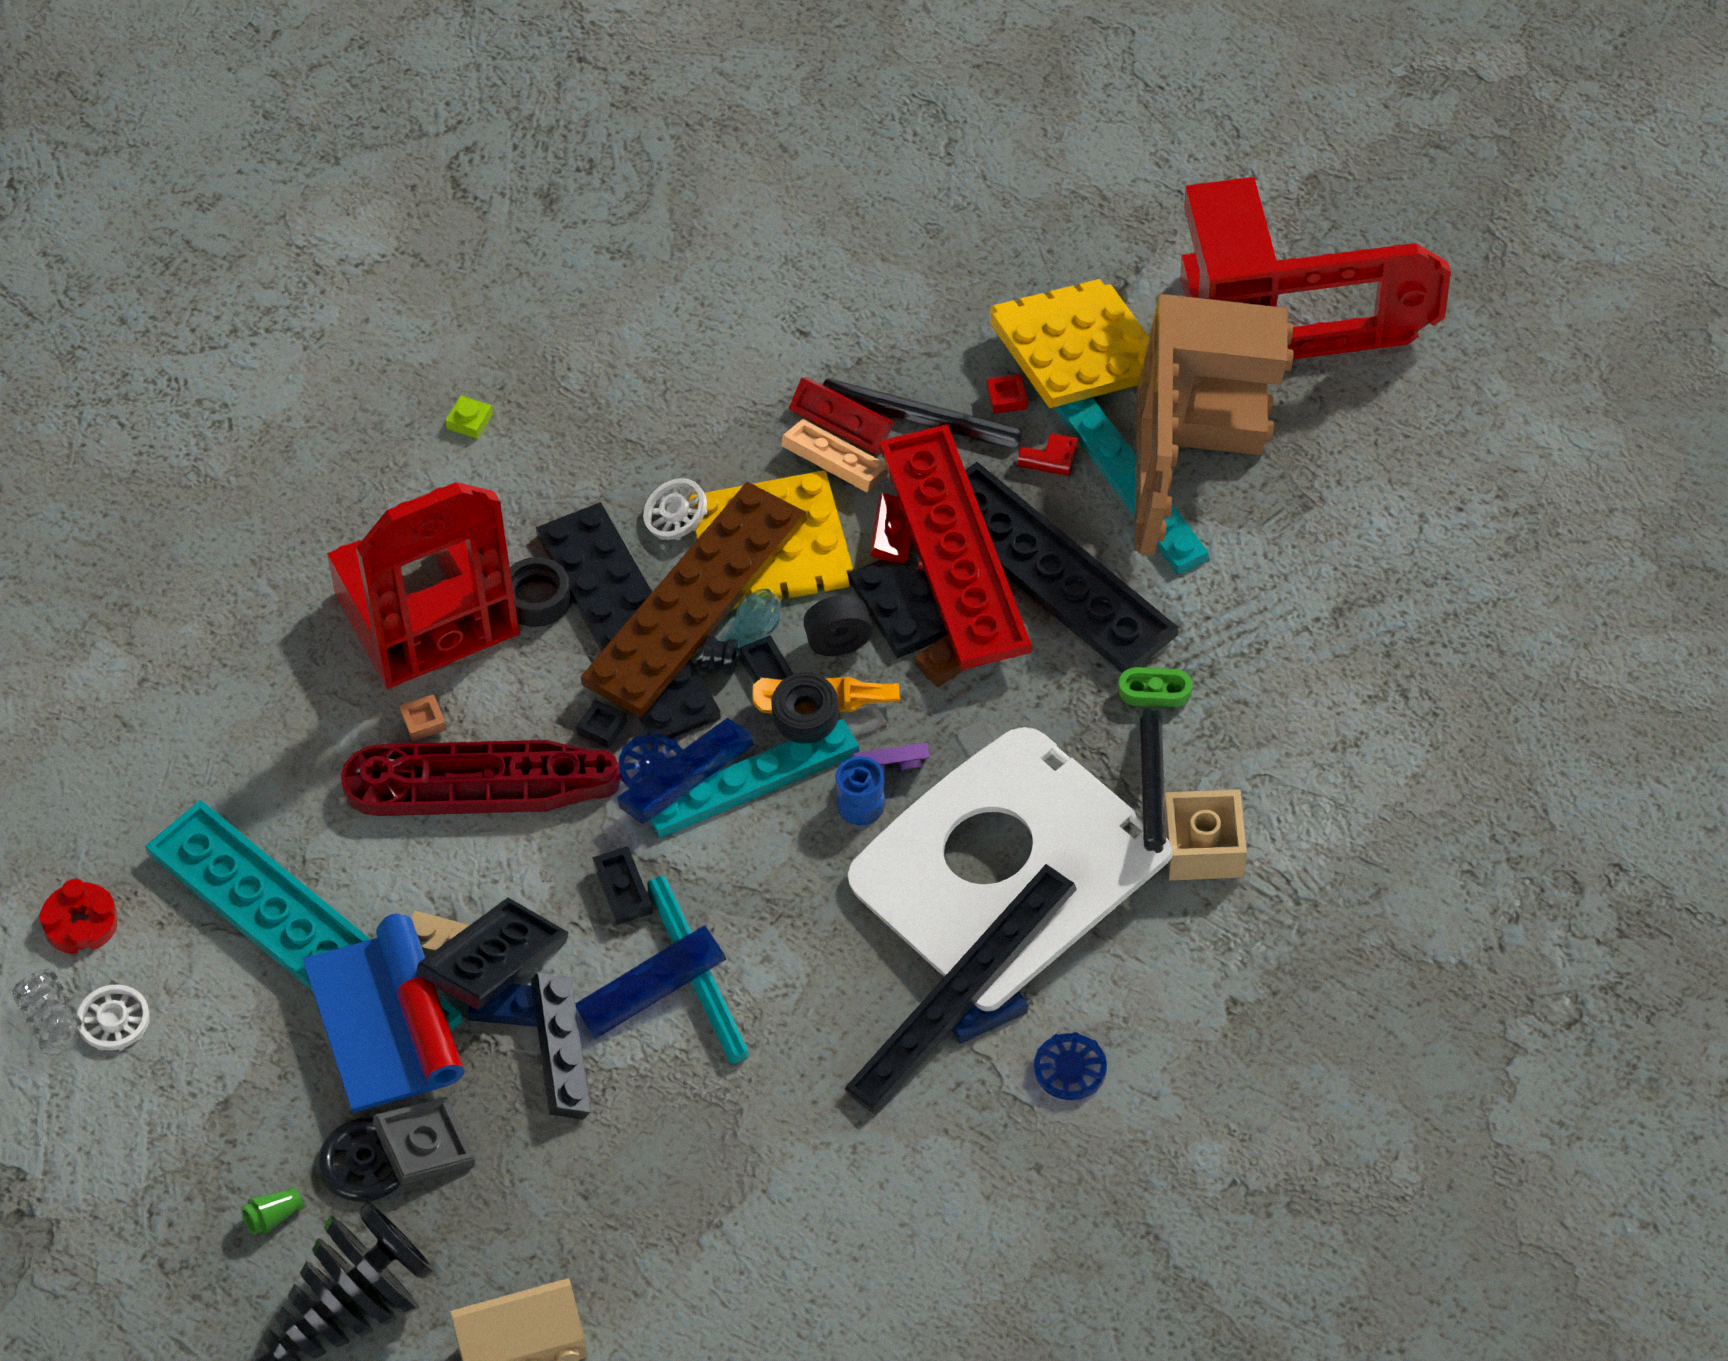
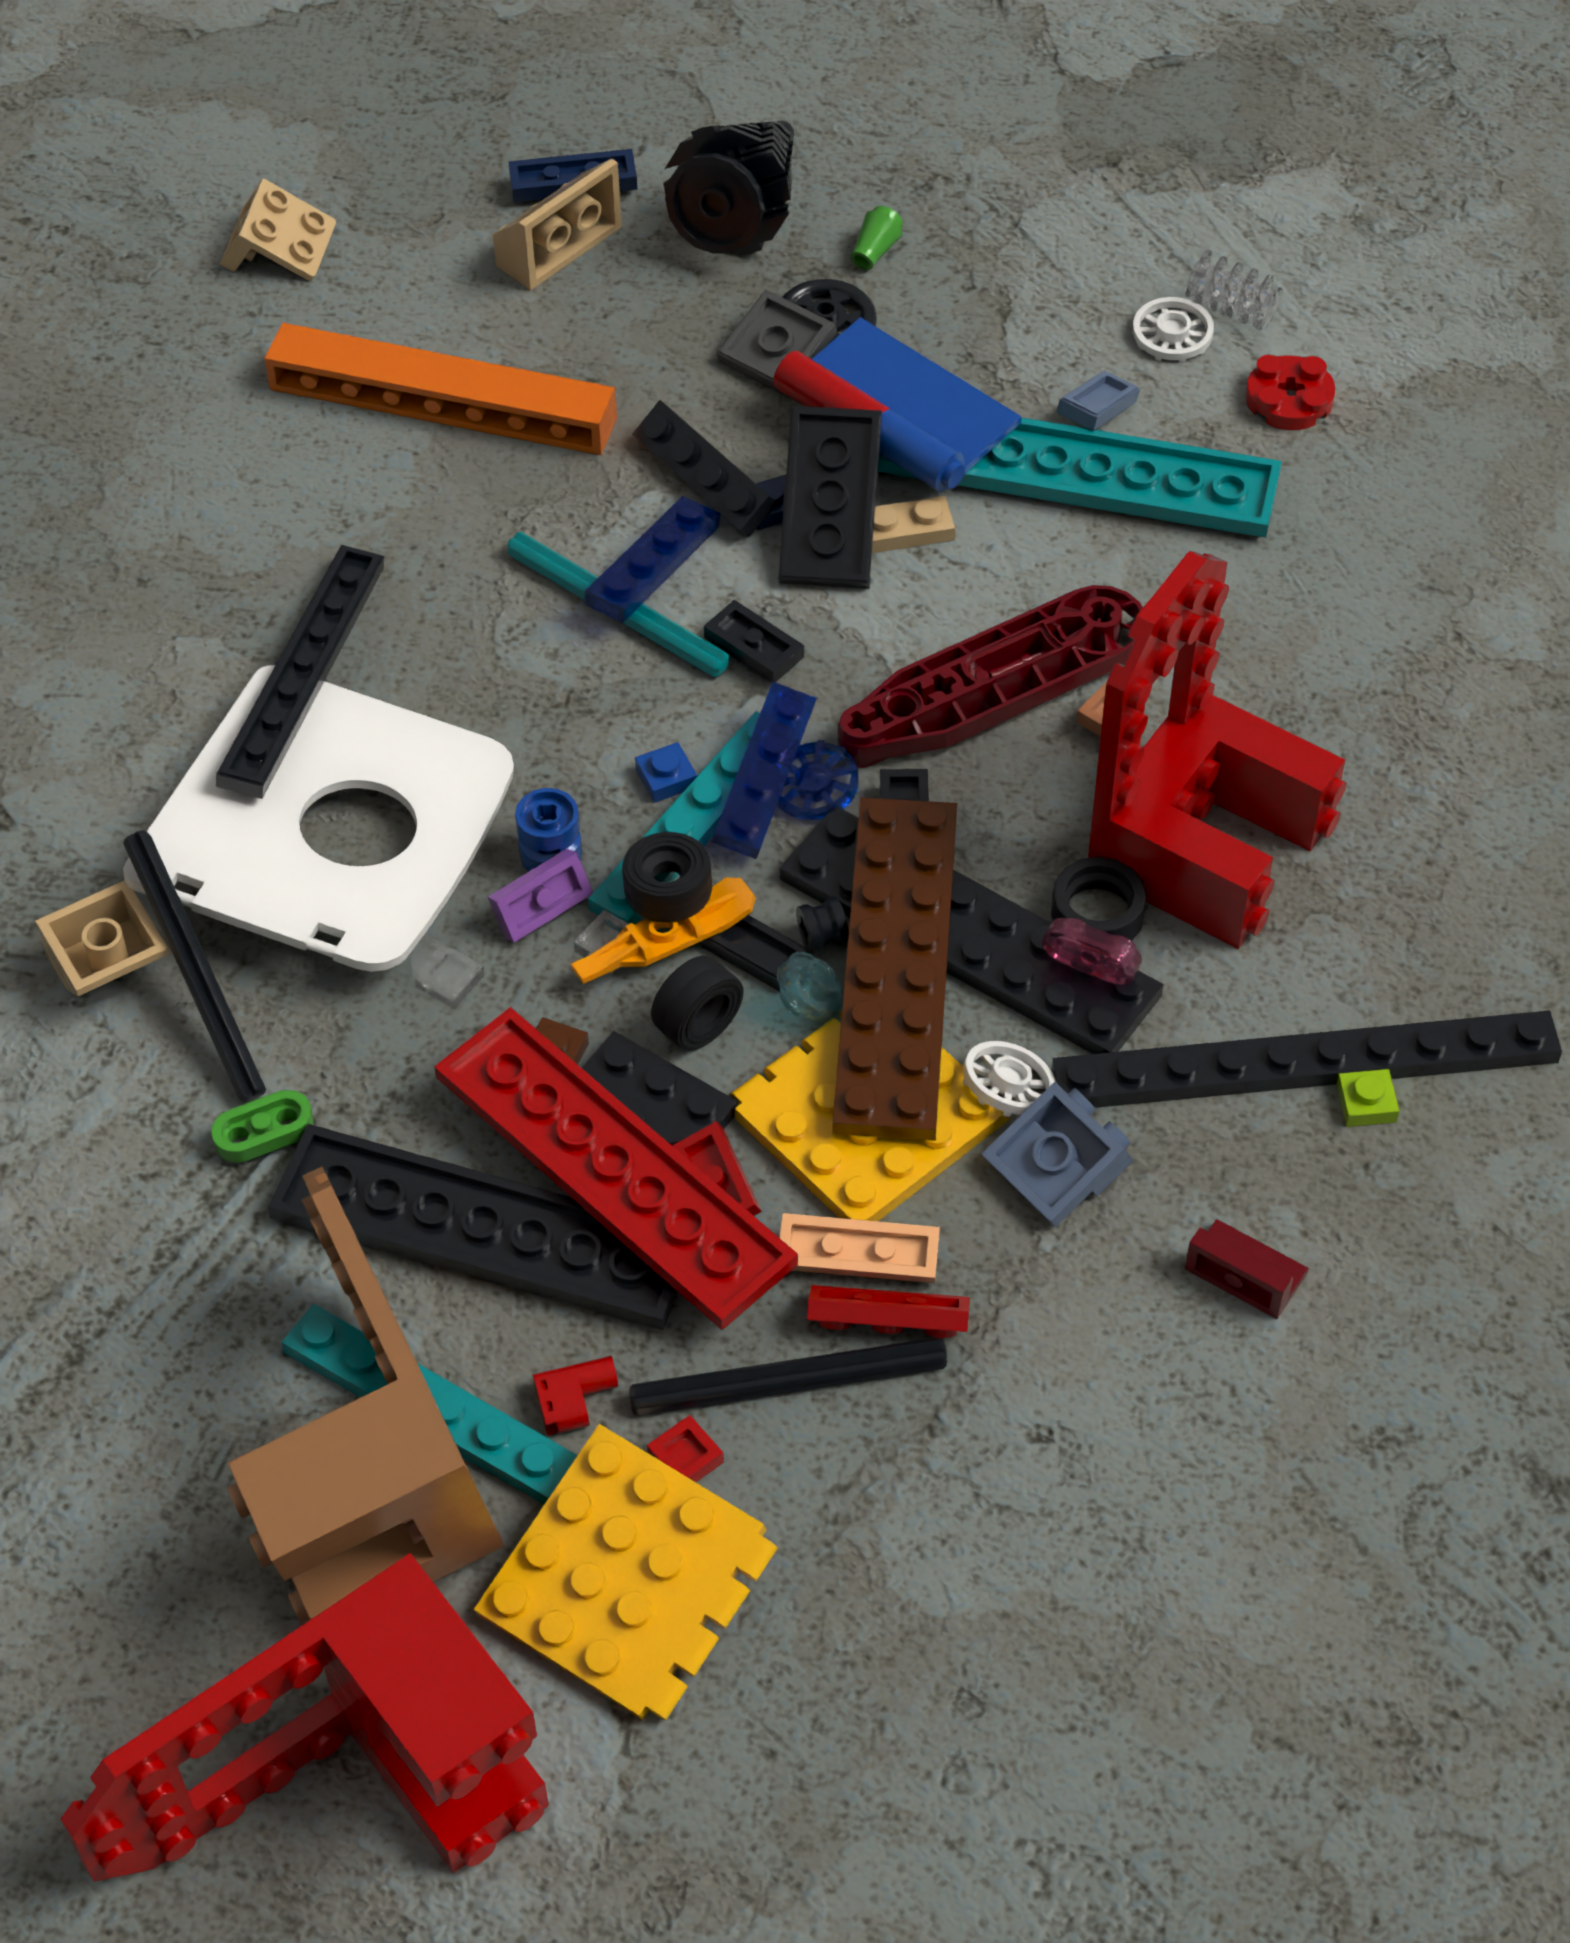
camera: 150 degrees right, 0 degrees up
(227, 965) = (1098, 400): none -> sand blue tile
(486, 453) = (1310, 1059): none -> black plate
(575, 543) = (1092, 950): none -> clear pink plate
(619, 357) = (1244, 1267): none -> dark red panel
(678, 450) = (1059, 1153): none -> sand blue plate
(715, 1223) = (441, 388): none -> orange brick
(747, 821) = (665, 771): none -> blue plate
(1070, 1066) = (152, 677): clear blue wheel -> none

